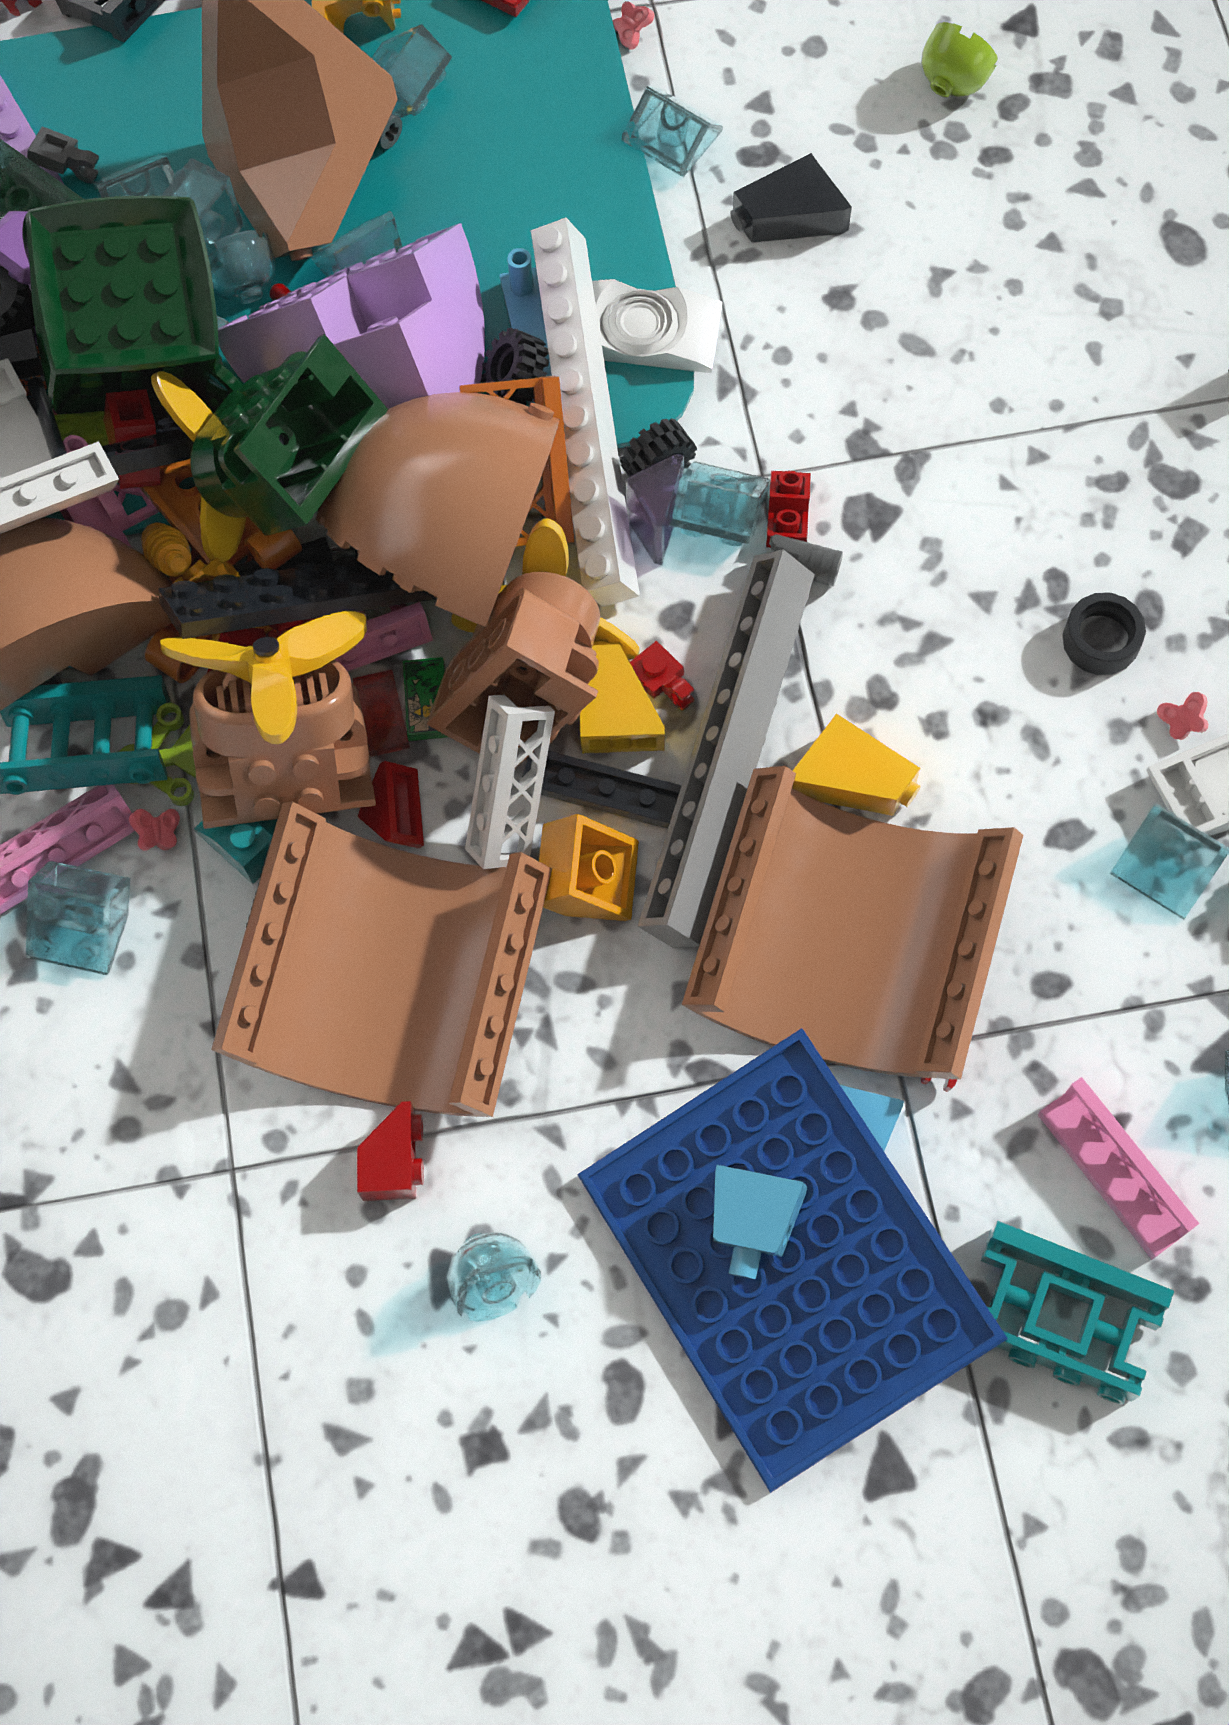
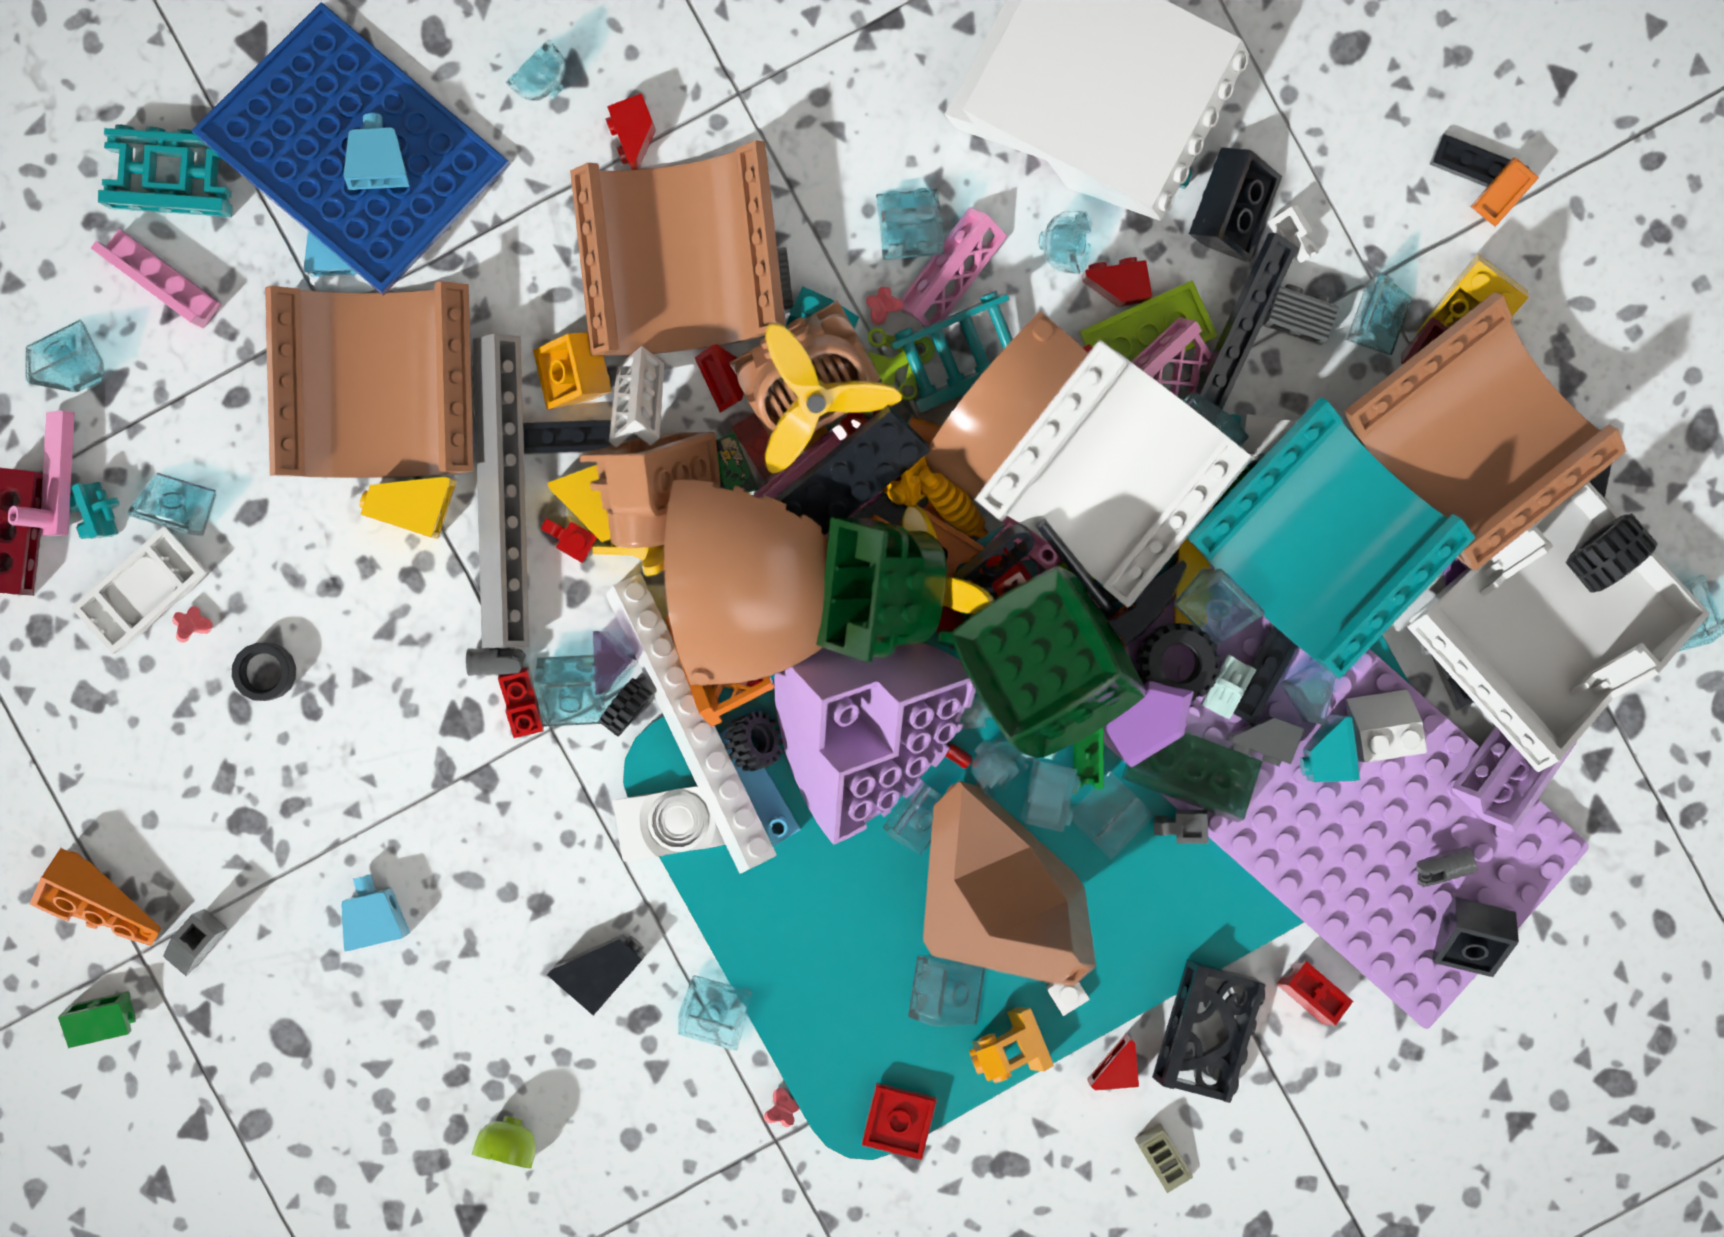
camera: 155 degrees right, 20 degrees up
(1044, 328) = (371, 916): none -> medium azure torso

